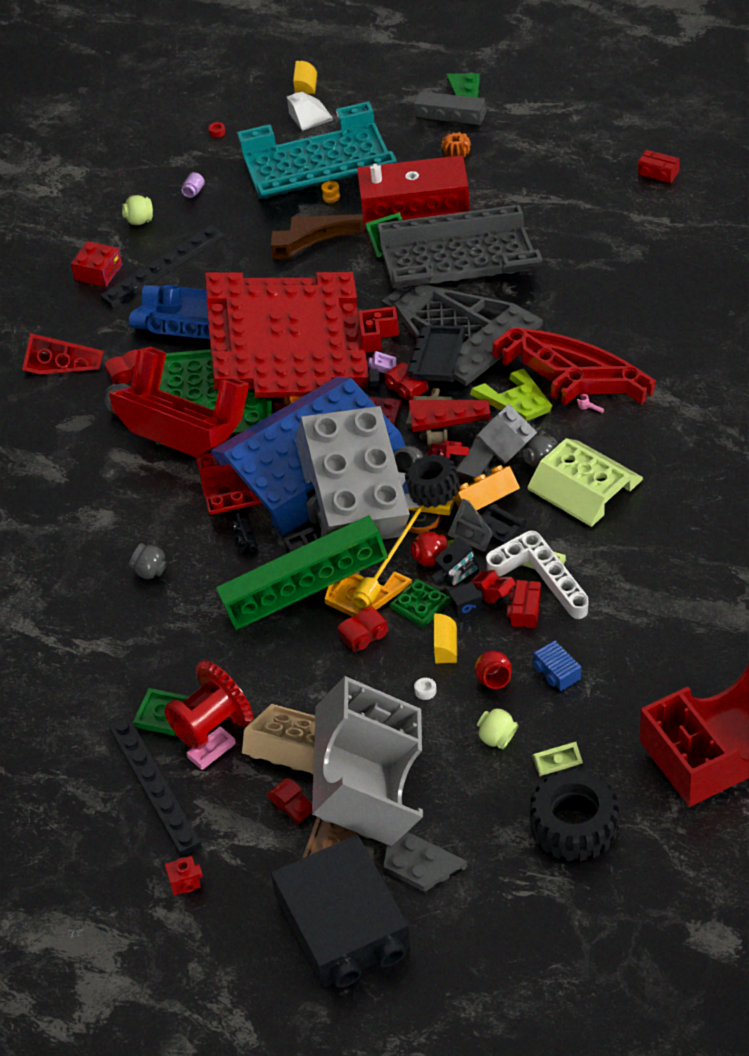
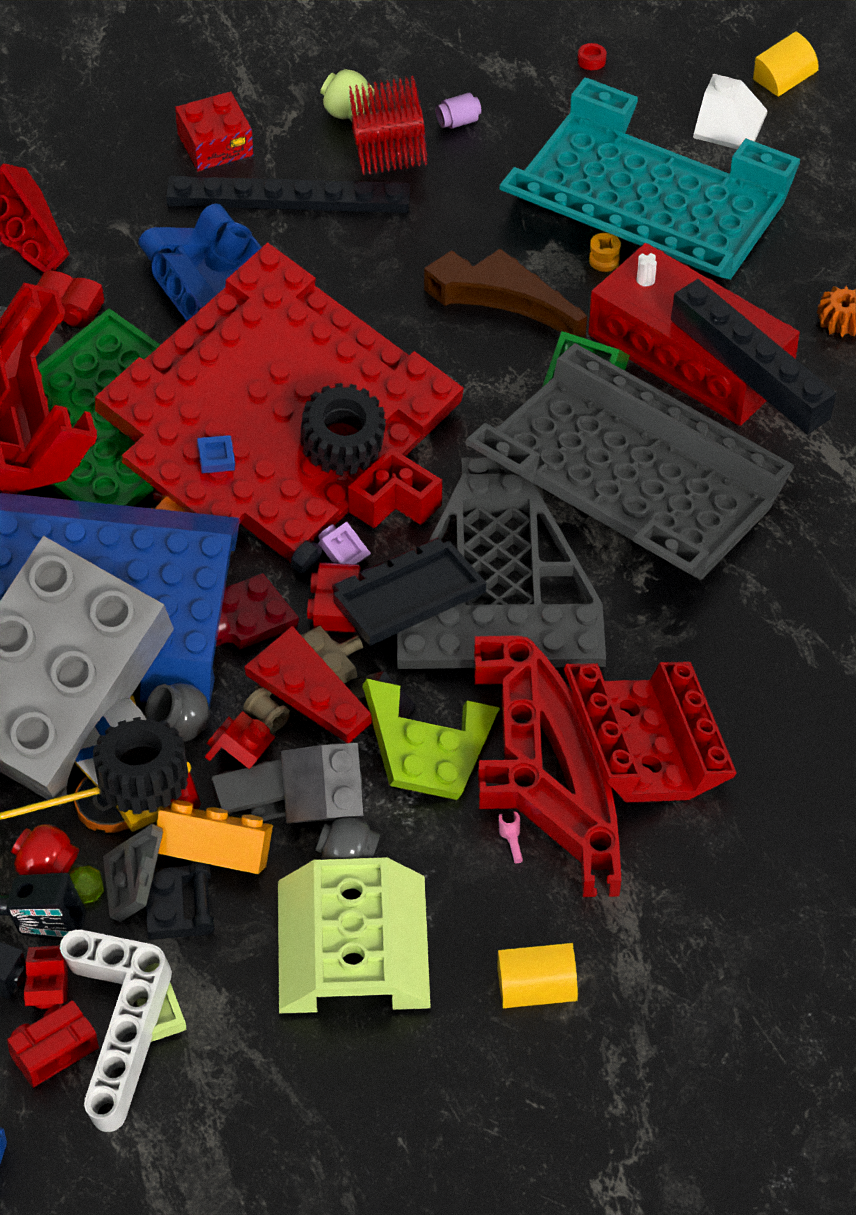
camera: 40 degrees right, 5 degrees up
(179, 204) = (388, 125): none -> red piece
(295, 362) = (216, 454): none -> blue tile
(335, 314) = (347, 407): none -> black tyre
(462, 171) = (753, 356): none -> black brick
(596, 325) = (668, 732): none -> red slope
(666, 436) = (537, 975): none -> yellow brick

